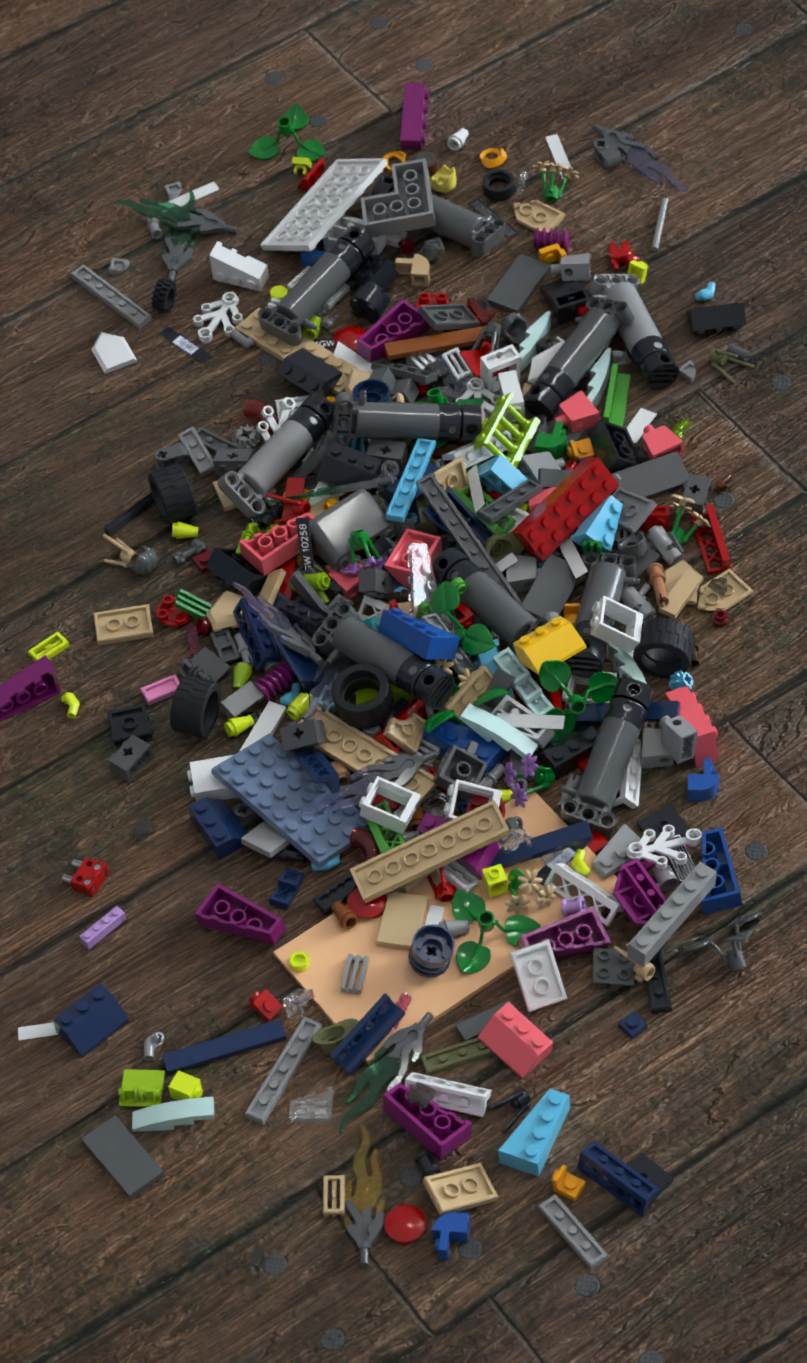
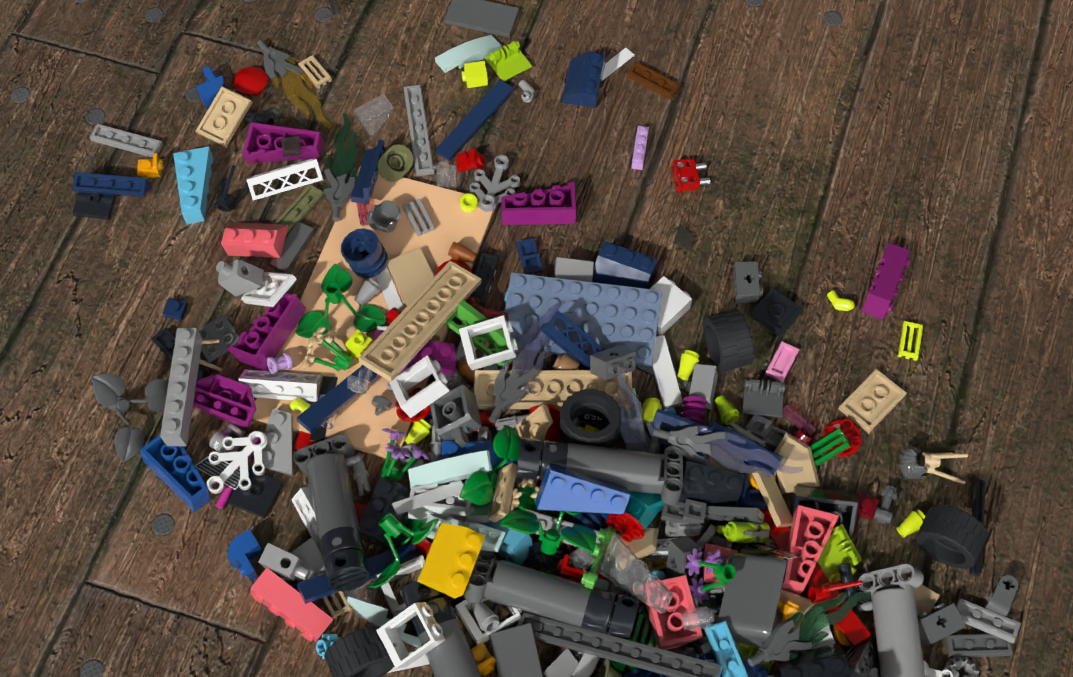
camera: 140 degrees right, 10 degrees up
(27, 987) = (653, 80): none -> reddish brown tile
(263, 964) = (489, 202): none -> light grey plant
(387, 980) = (384, 216): none -> dark grey hair
(402, 532) = (697, 618): none -> clear brick
(556, 999) = (239, 277): none -> light grey torso

